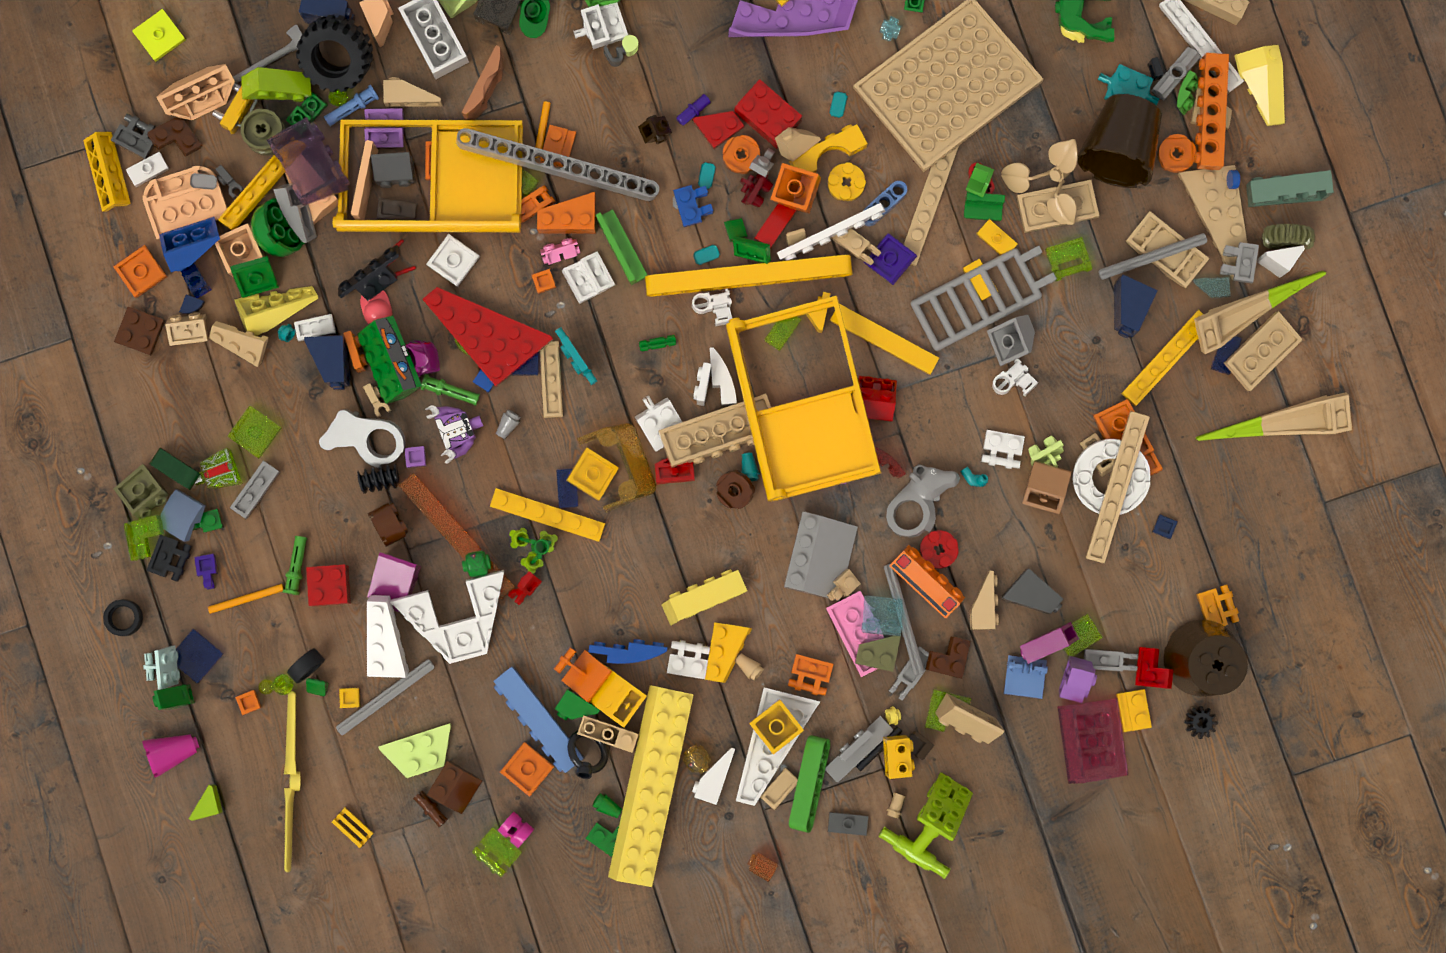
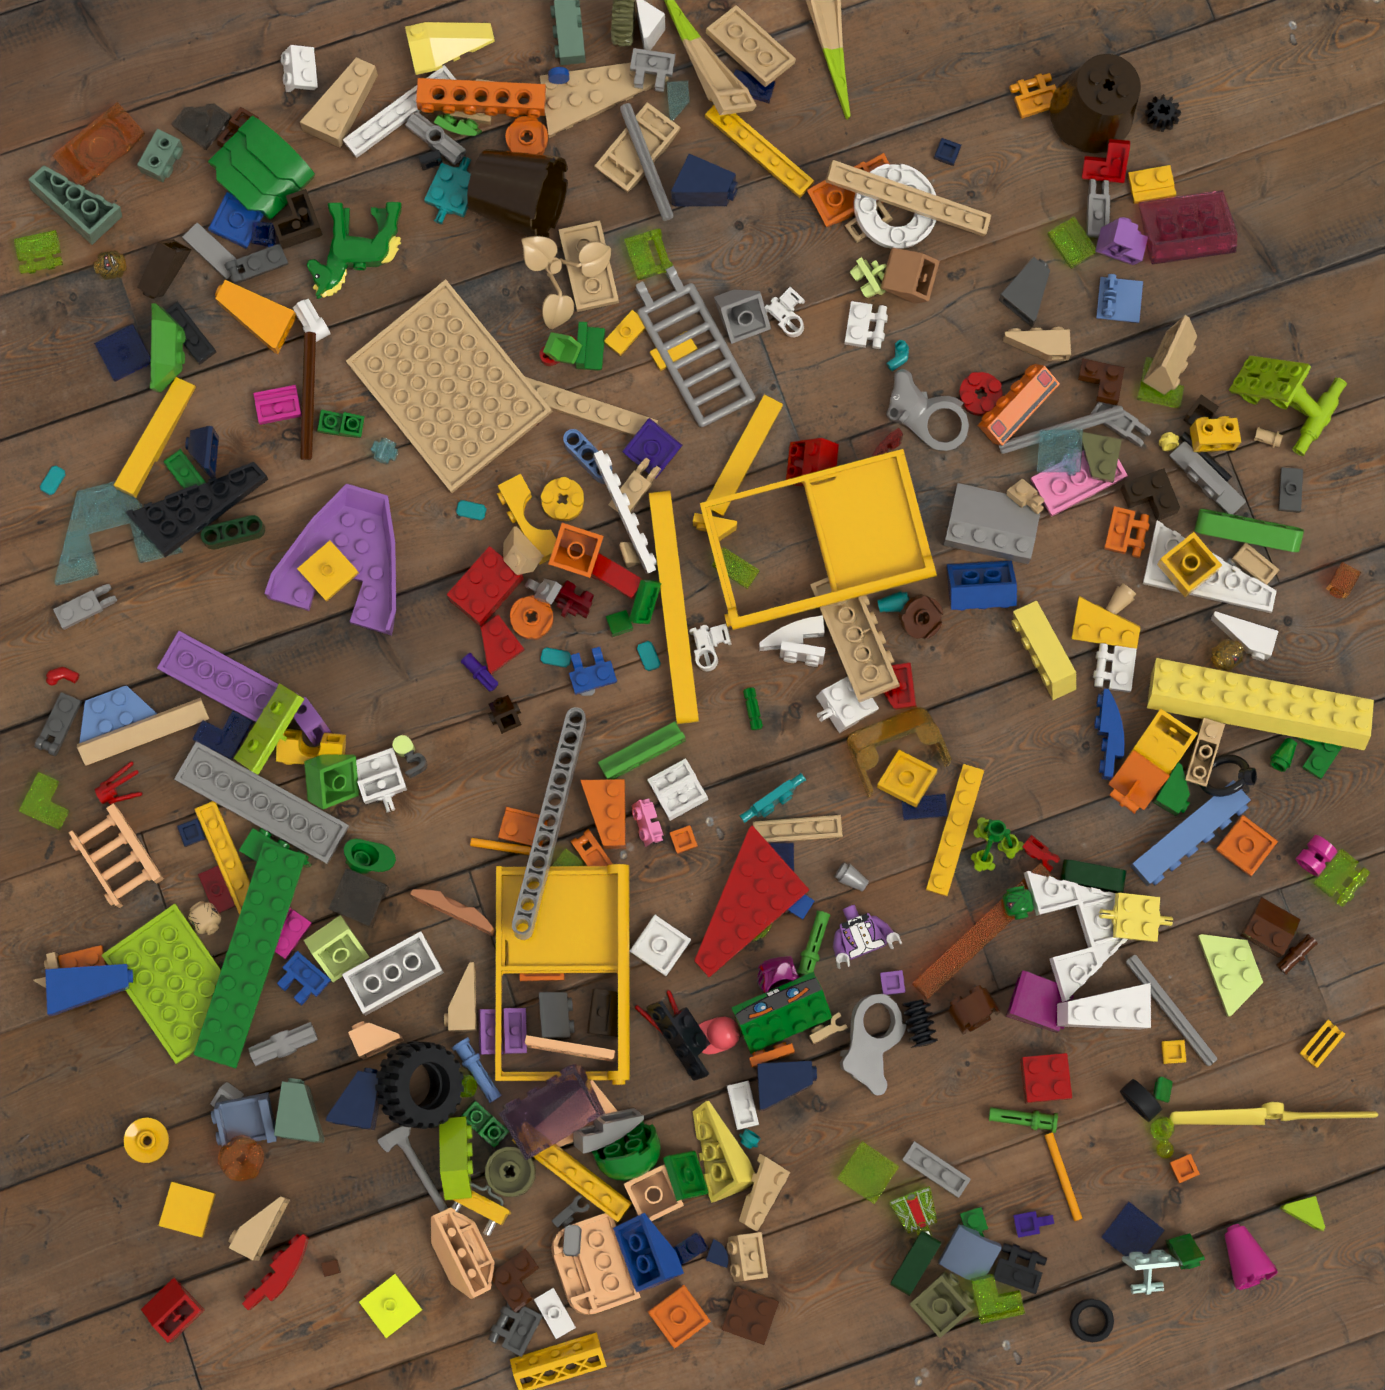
camera: 85 degrees left, 5 degrees down
(465, 668) = (1136, 917): none -> light yellow plate
(503, 633) = (1093, 875): none -> dark green beam
(764, 544) = (981, 585): none -> blue slope
(848, 700) = (1153, 489): none -> dark brown brick
(1049, 642) = (1084, 270): magenta brick -> none

